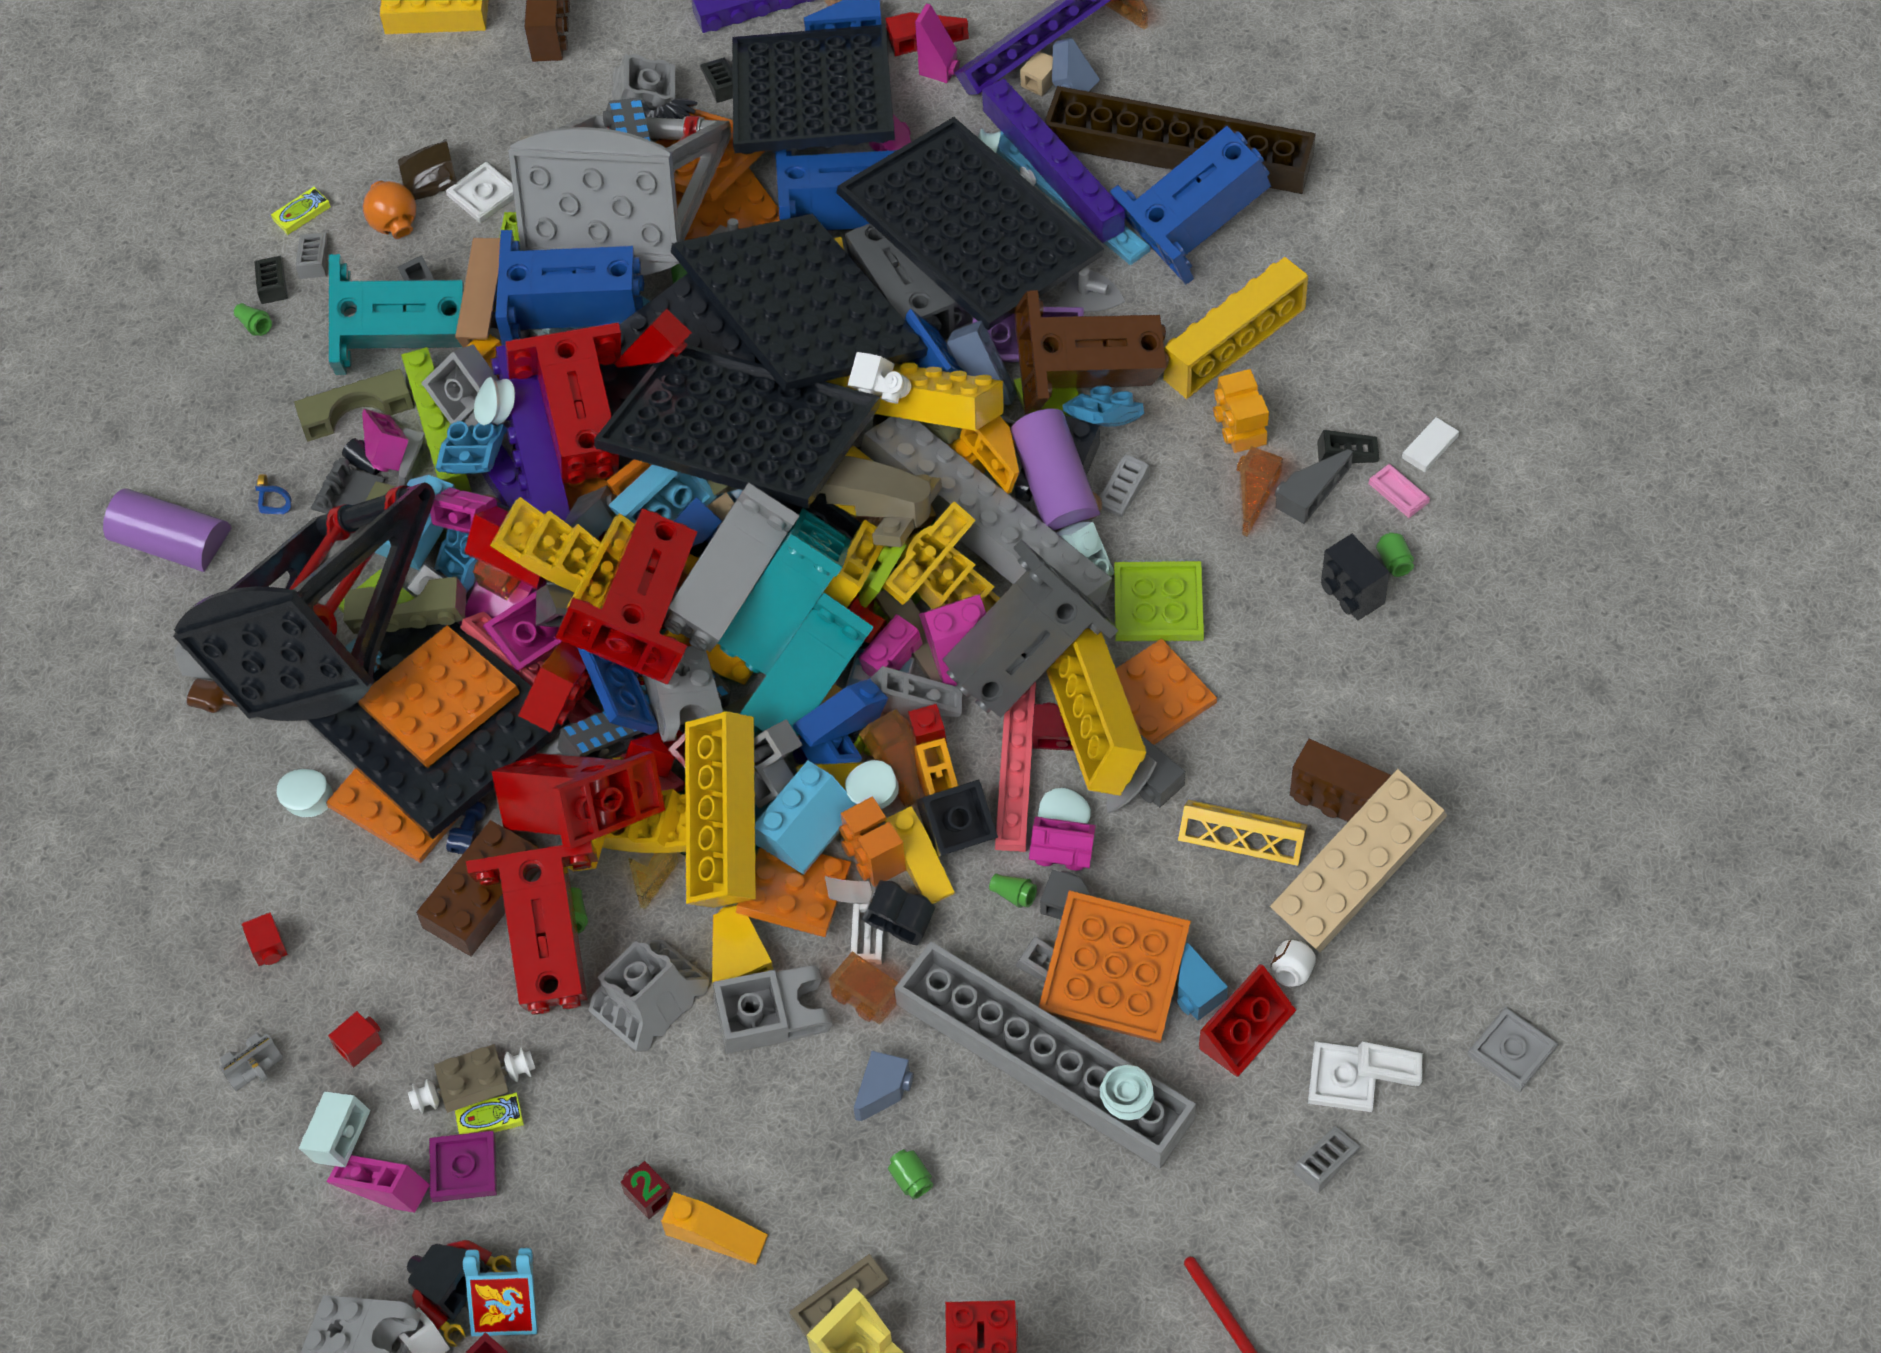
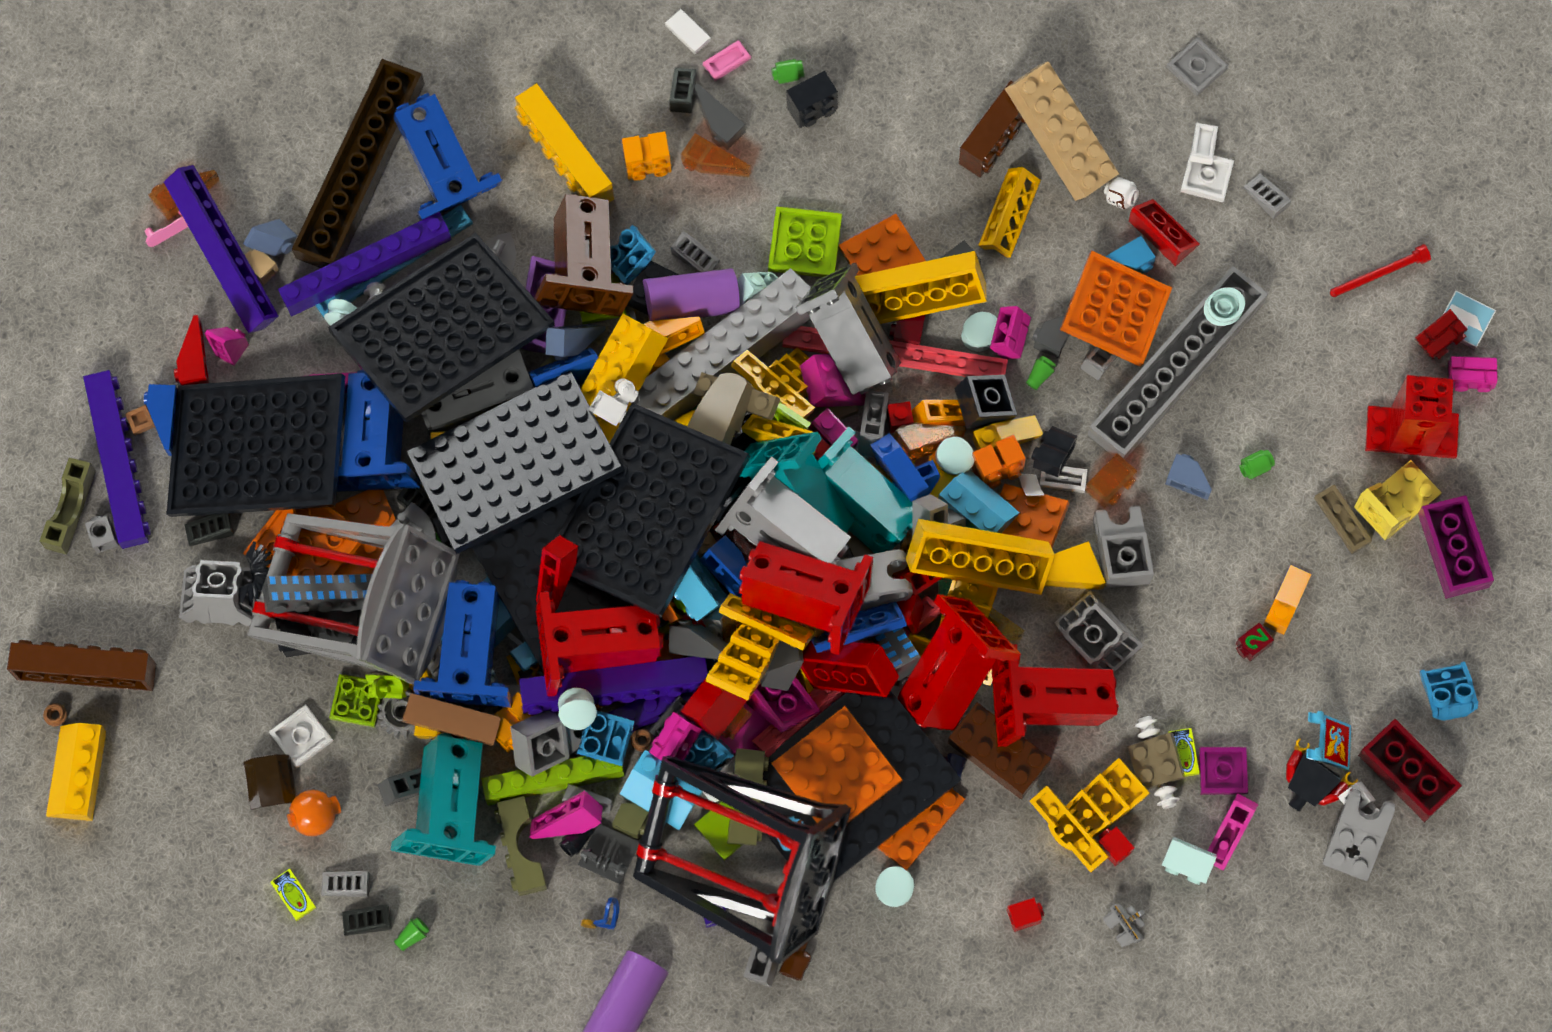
camera: 85 degrees left, 15 degrees up
(399, 1002) = (1091, 811): none -> yellow slope

